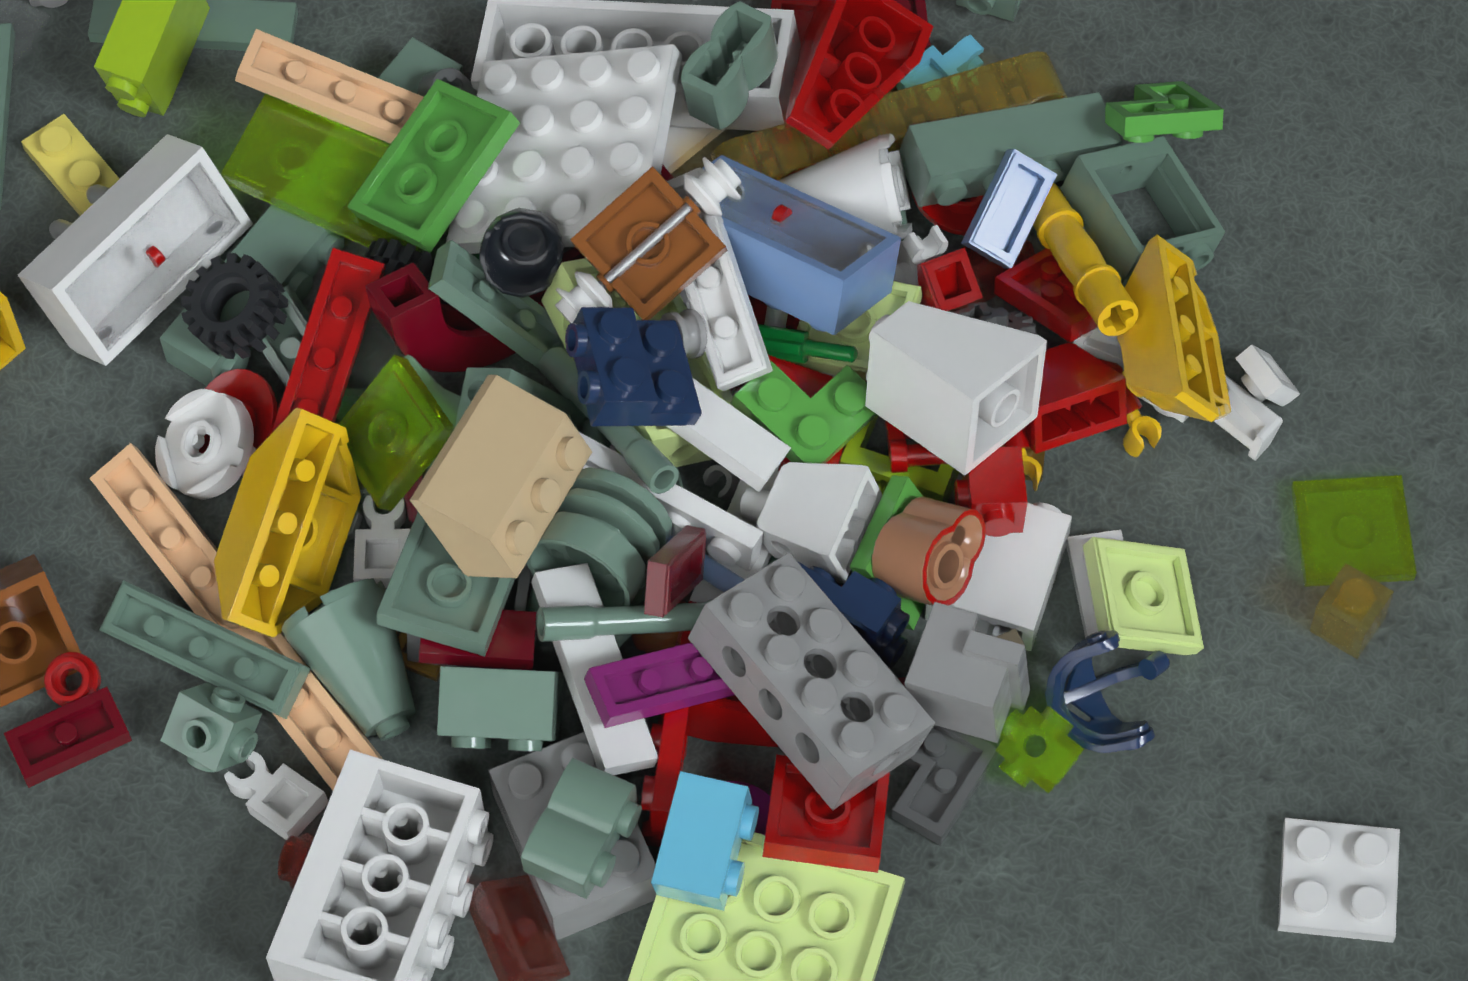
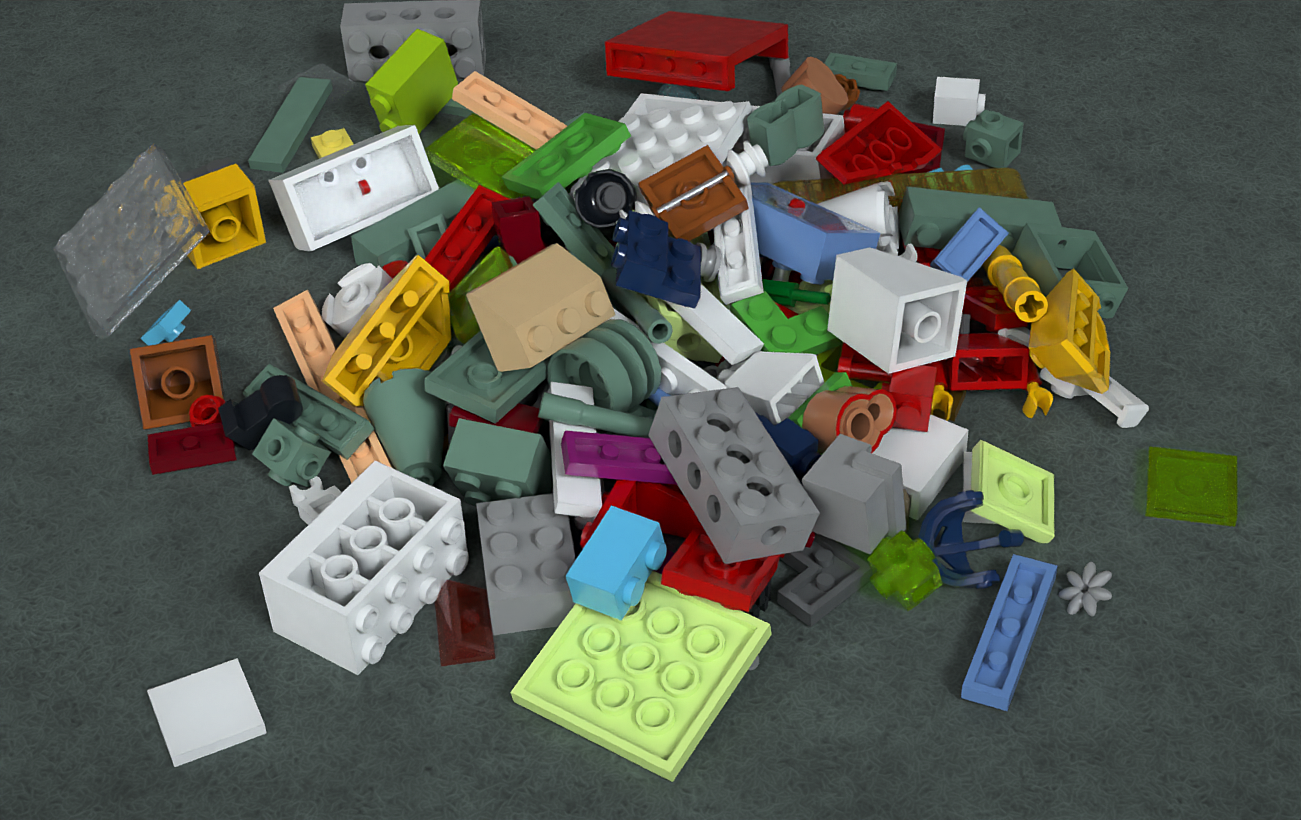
camera: 15 degrees right, 20 degrees down
(149, 672) = (251, 417): none -> black leg
(251, 323) = (404, 216): black tyre -> none
(580, 829) = (525, 538): sand green brick -> none
(675, 571) = (645, 388): dark red tile -> none
(1162, 110) = (1101, 219): bright green plate -> none
(1180, 805) = (1009, 633): none -> medium blue plate
(1249, 722) = (1086, 589): none -> light grey plant
(1265, 377) = (1140, 381): white plate -> none
(1339, 880) = (1131, 707): white plate -> none
(1351, 611) = (1178, 527): clear yellow brick -> none

